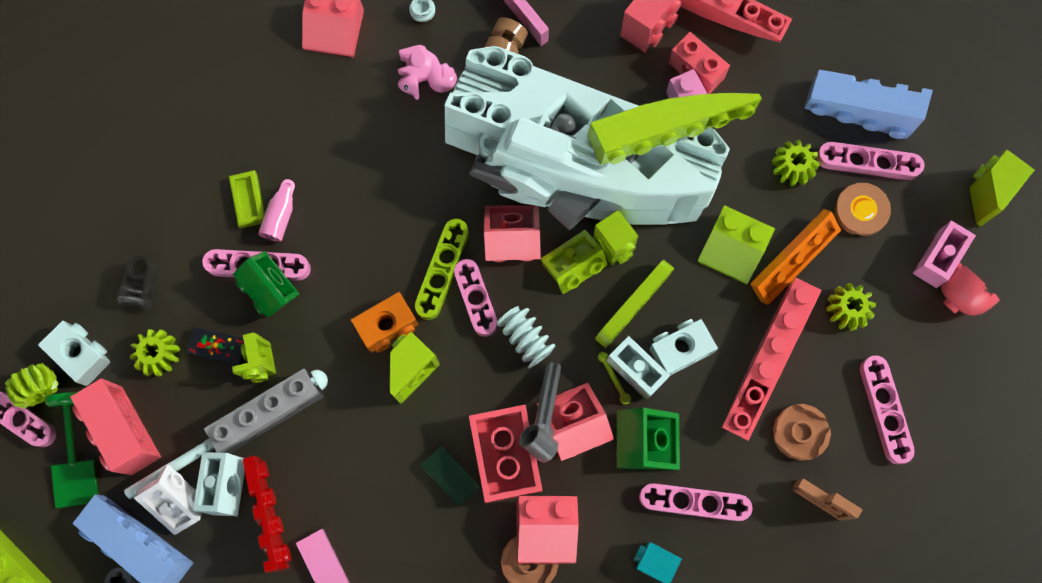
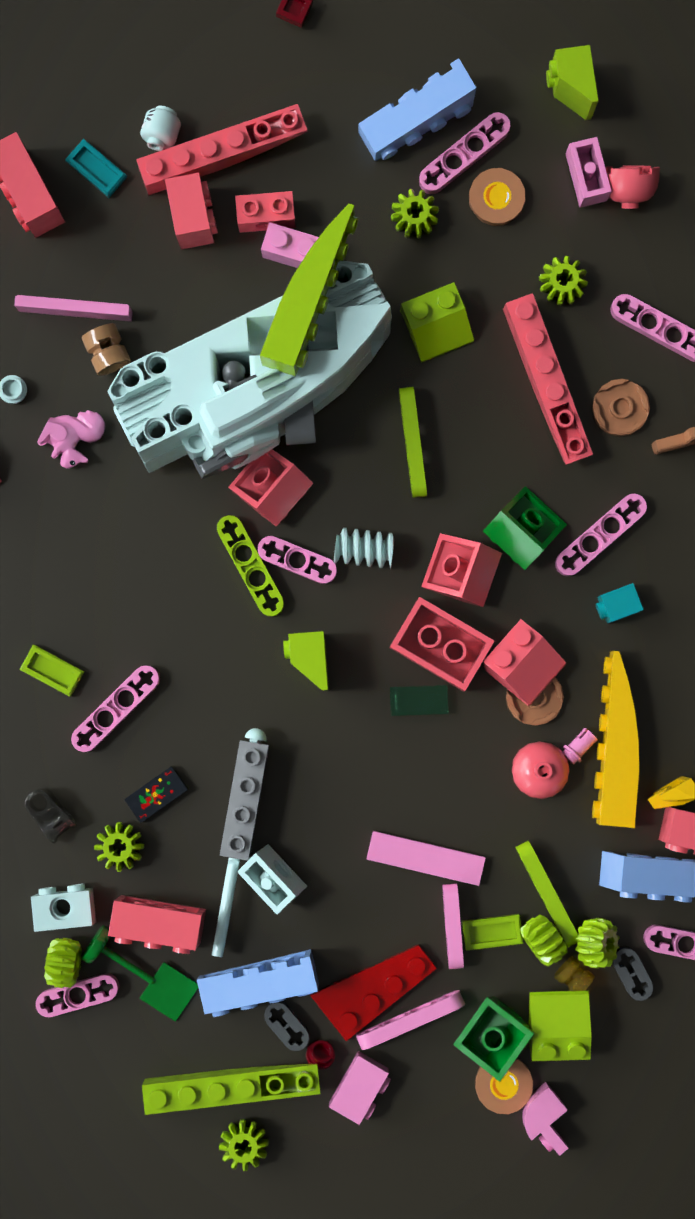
camera: 45 degrees left, 10 degrees up
(170, 500) = (252, 926): white bracket -> none
(259, 357) = (195, 766): lime bracket -> none
(264, 284) = (144, 714): green slope -> none
(264, 514) = (287, 844): red wing -> none
(278, 213) = (87, 654): bright pink piece -> none
(369, 323) = (250, 631): orange brick -> none
(538, 437) = (454, 608): dark grey axle -> none
(575, 261) = (337, 457): lime bracket -> none
(616, 238) = (351, 411): lime brick -> none
(624, 397) = (477, 515): lime hinge -> none
(637, 368) = (465, 486): light aqua brick -> none
(697, 339) = (484, 420): light aqua brick -> none
(795, 257) = (487, 284): orange plate -> none

